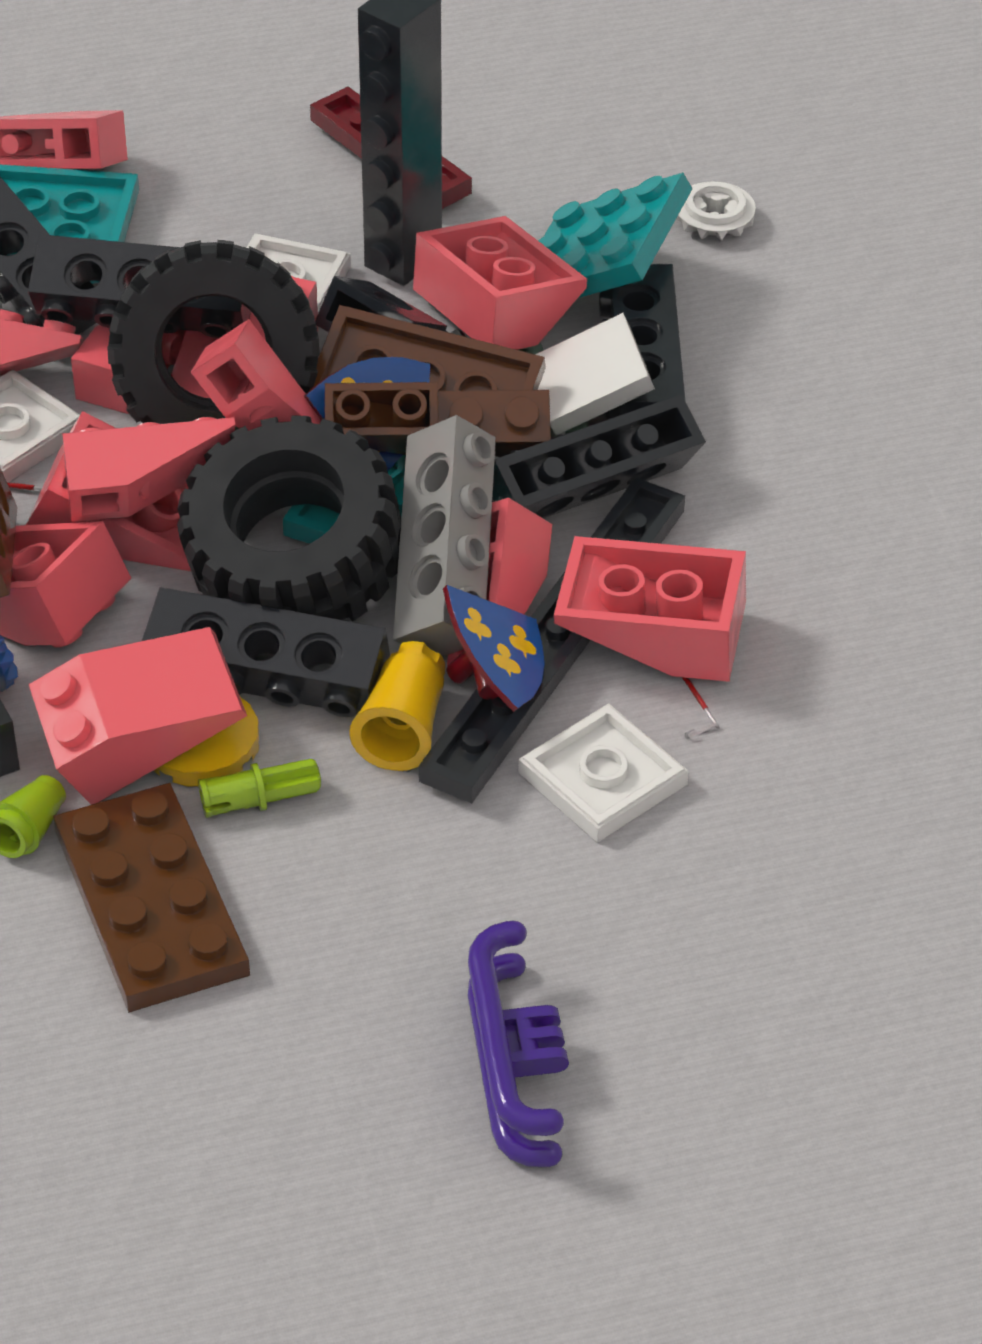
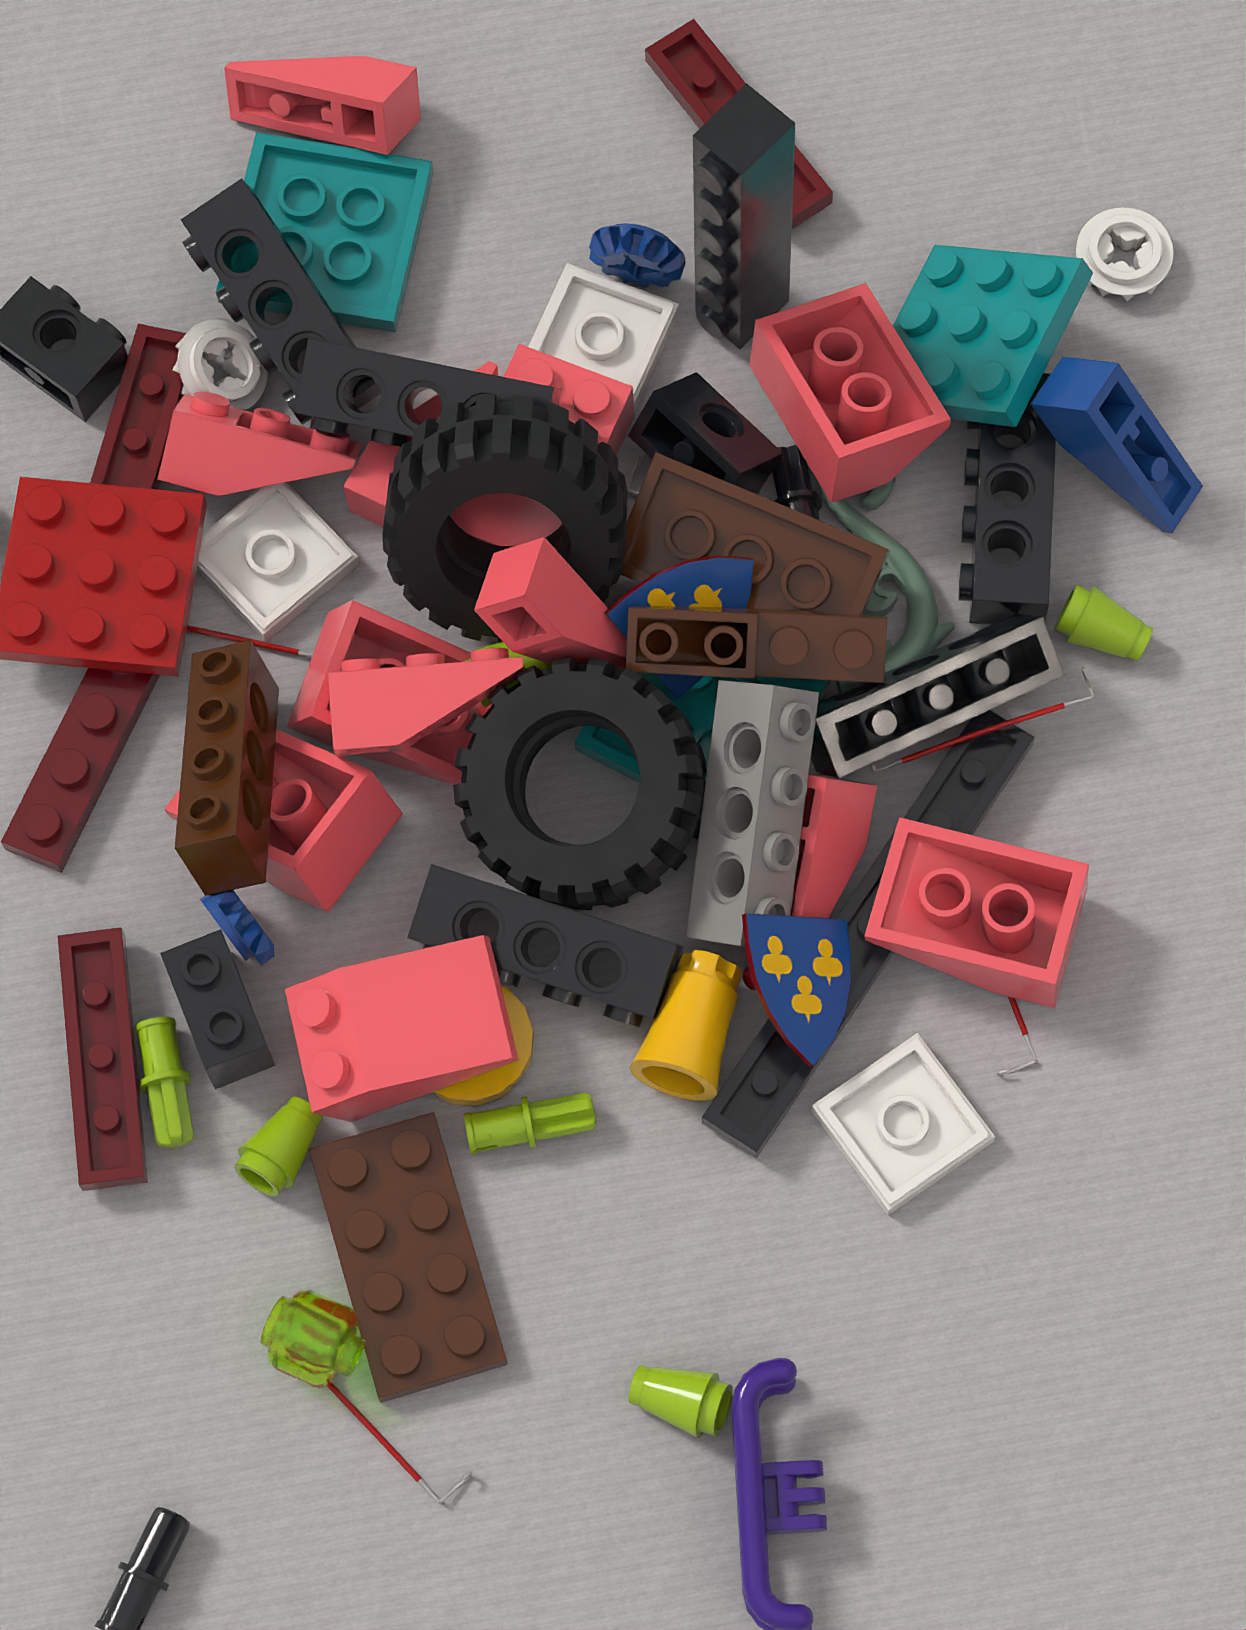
camera: 10 degrees right, 25 degrees up
(61, 948) = (312, 1338): none -> clear neon green head
(111, 1024) = (391, 1450): none -> red piece
(324, 203) = (637, 254): none -> blue gear
(420, 977) = (683, 1398): none -> lime cone
(593, 373) = (942, 552): white tile -> none
(647, 487) = (989, 729): none -> red piece
(725, 293) = (1117, 437): none -> blue slope
(733, 427) = (1102, 624): none -> lime cone

